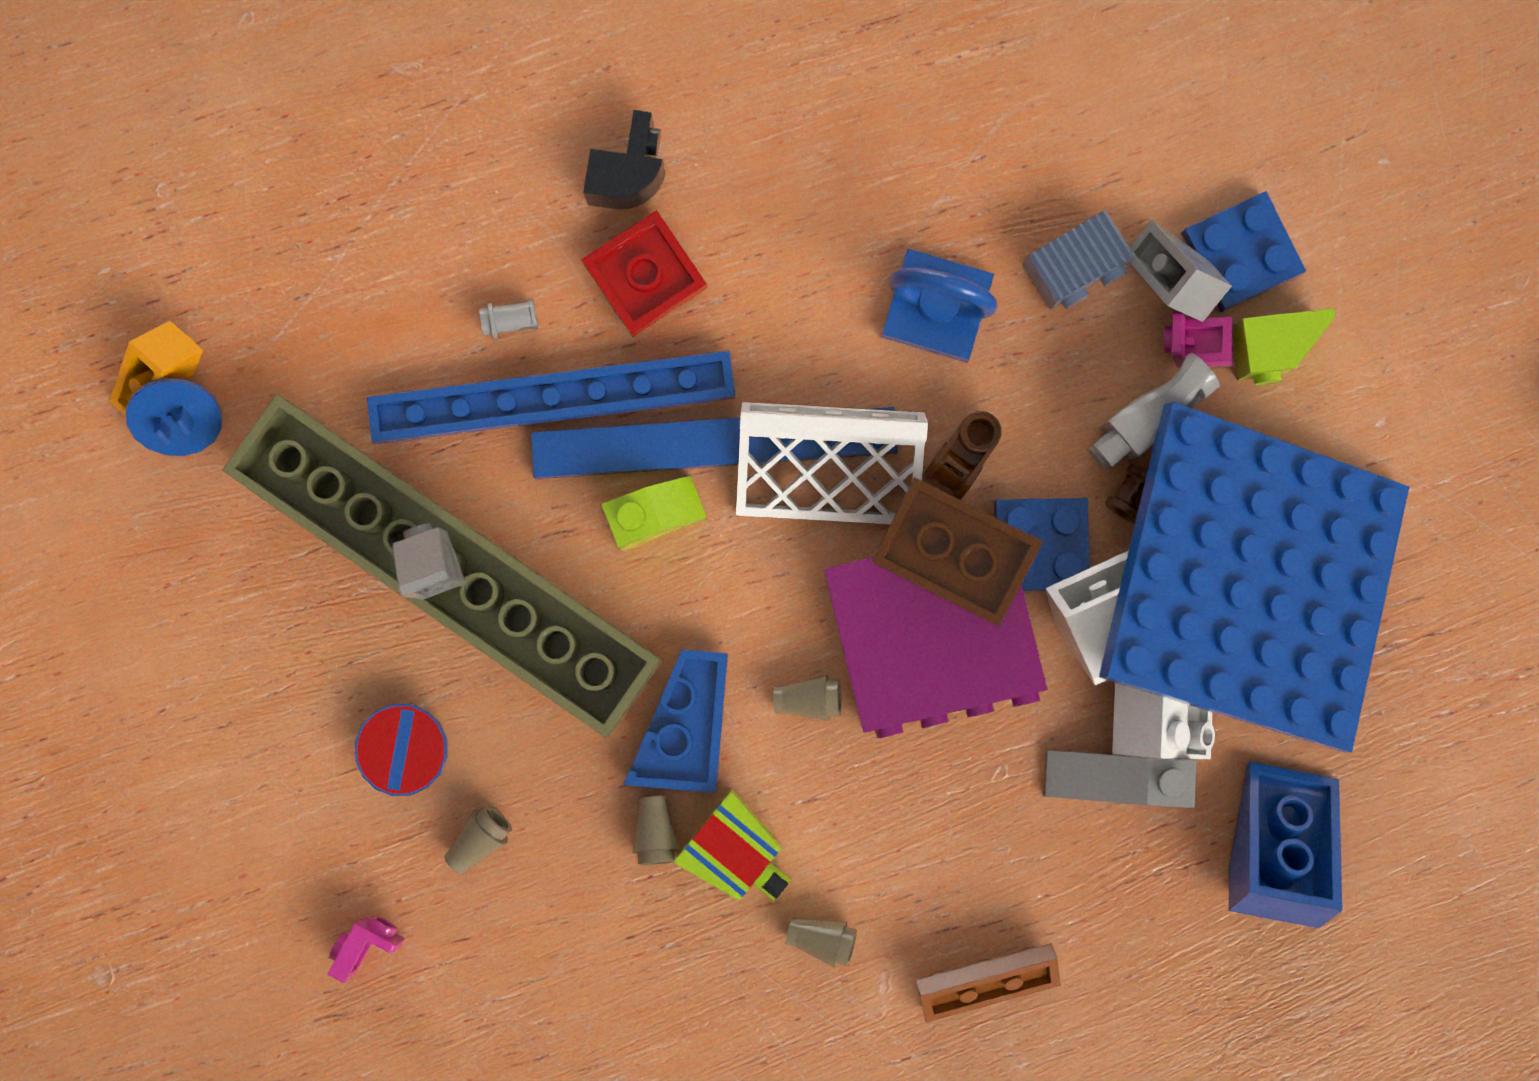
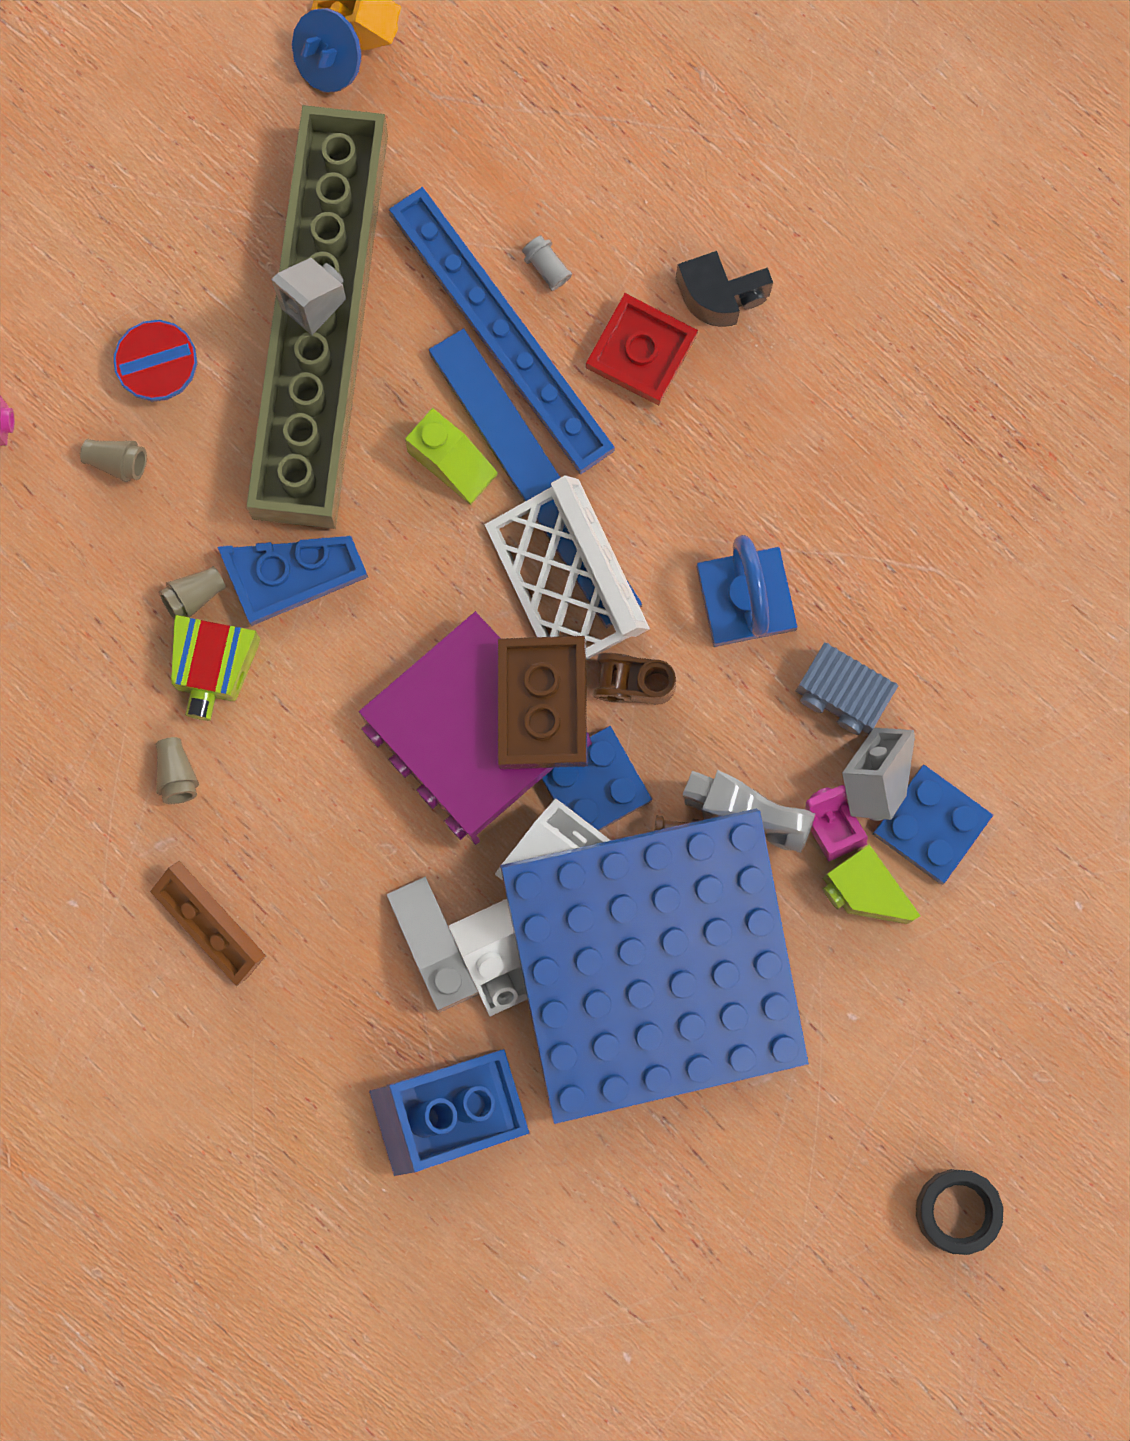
camera: 60 degrees right, 5 degrees down
(810, 698) = (366, 661): dark tan cone -> none

